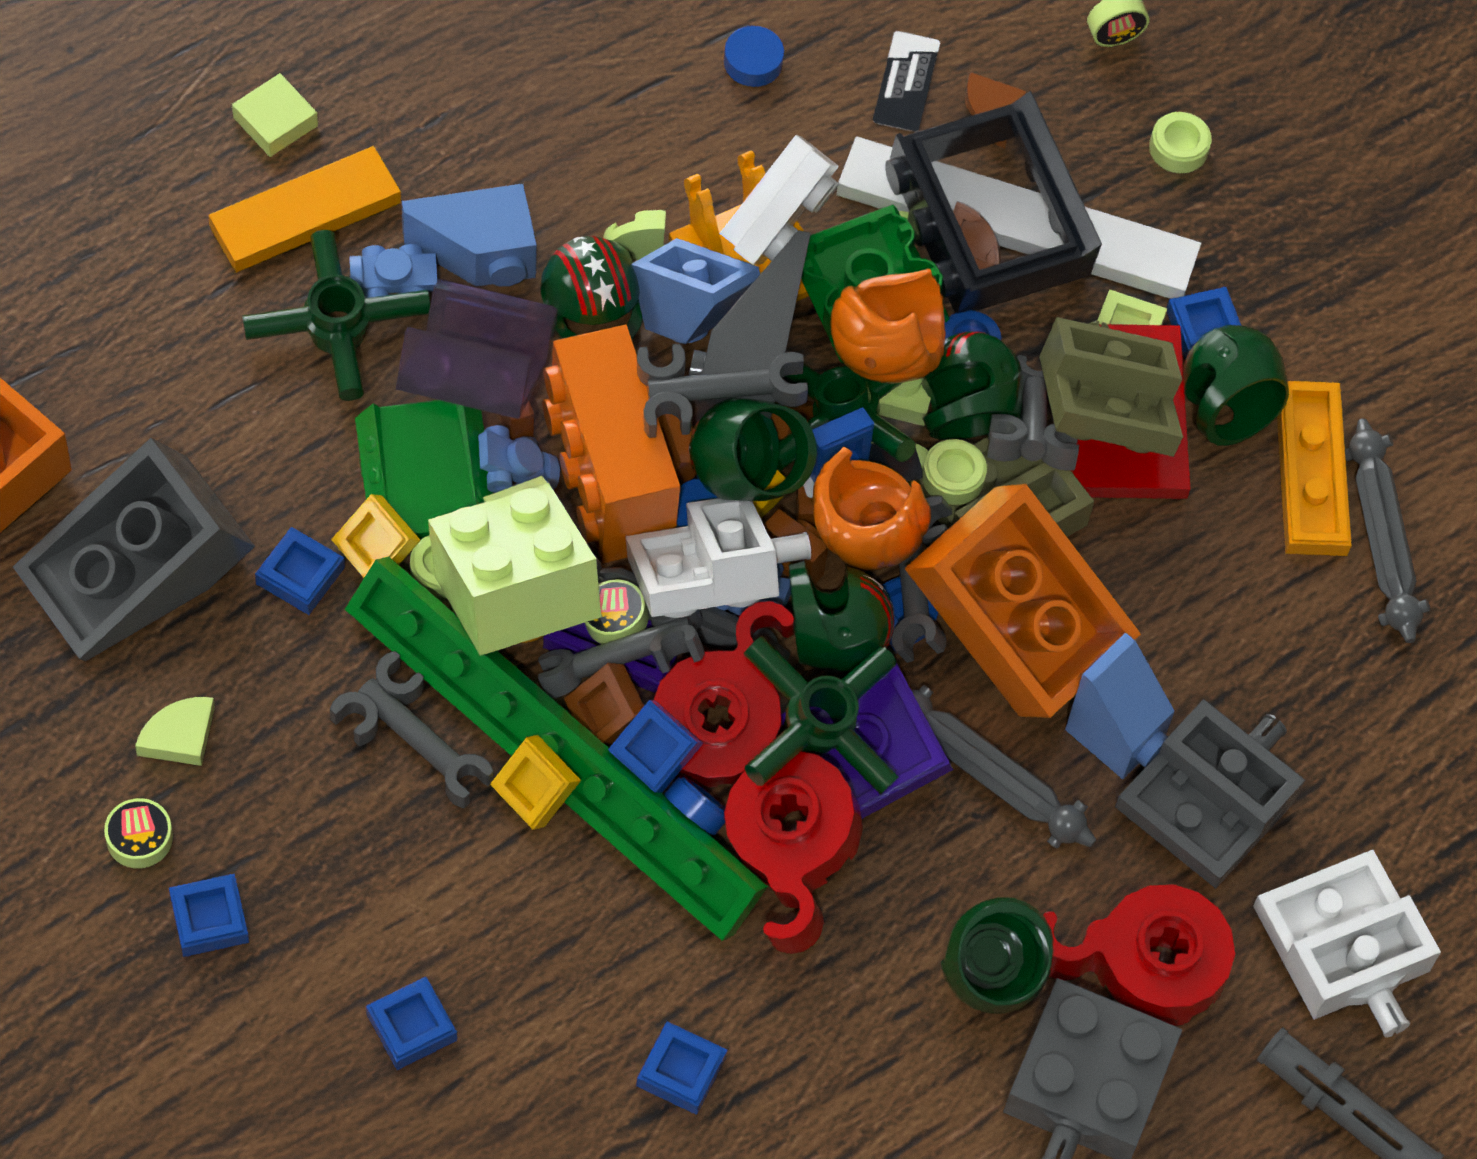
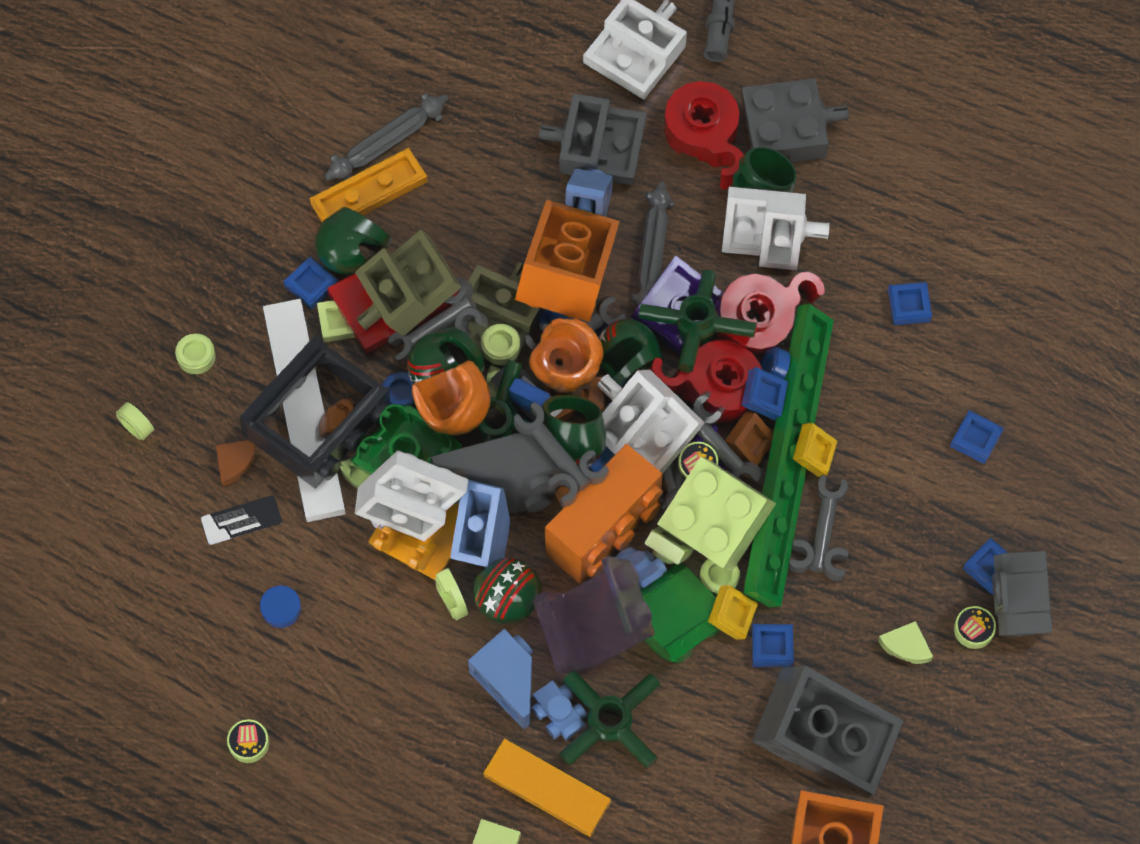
camera: 115 degrees left, 5 degrees up
(131, 892) = (1022, 594): none -> dark grey piece
(913, 915) = (768, 226): none -> white plate

